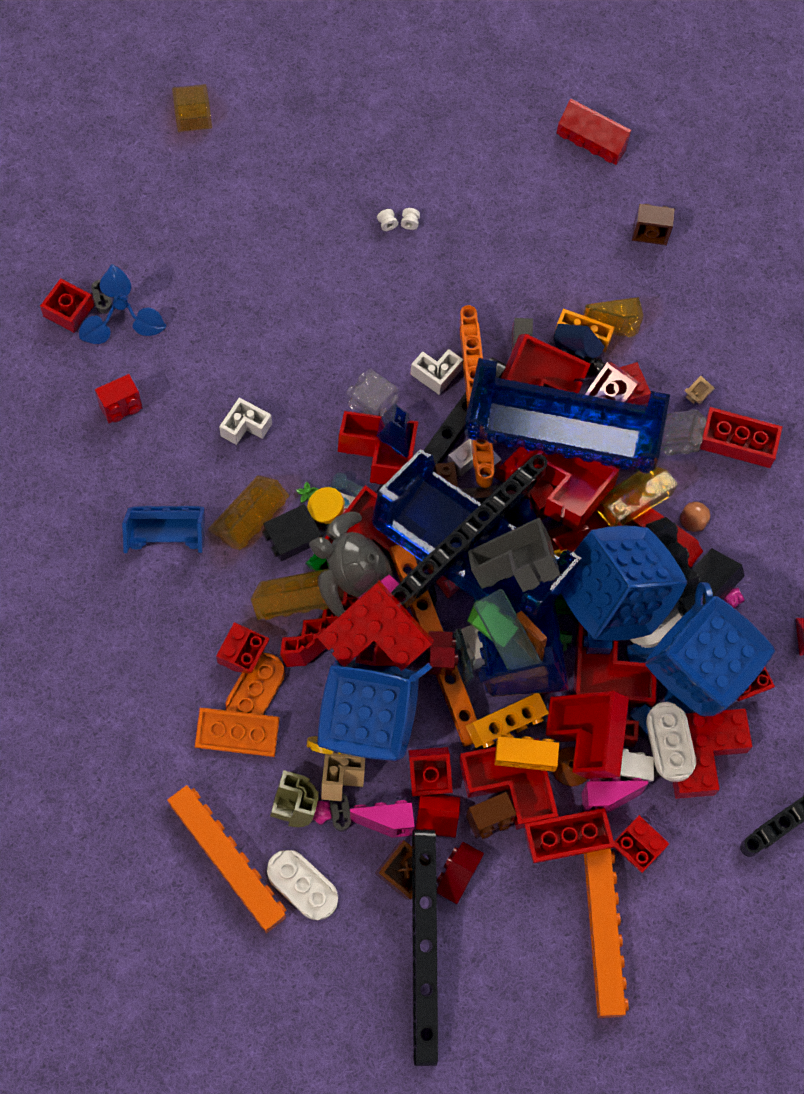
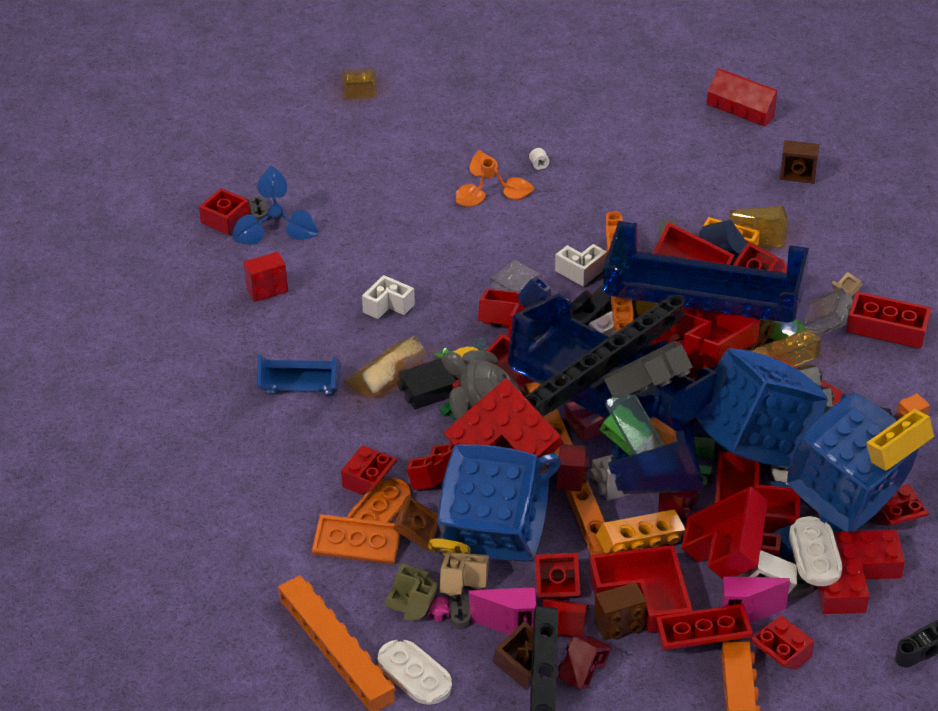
camera: 10 degrees right, 25 degrees down
(288, 596) = (417, 428): clear yellow slope -> none
(294, 712) = (416, 522): none -> dark orange plate
(332, 229) = (486, 166): none -> orange plant
(410, 218) = (561, 158): white wheel -> none
(434, 428) = (583, 297): none -> black tile
(464, 665) = (595, 479): clear light blue piece -> none
(526, 753) = (659, 552): light orange brick -> none
(564, 771) = (705, 584): dark orange dish -> none
(596, 646) = (738, 473): blue brick -> none
(695, 516) = (844, 380): nougat hair -> none
(759, 657) = (900, 439): none -> yellow brick
(760, 551) = (913, 402): none -> orange brick

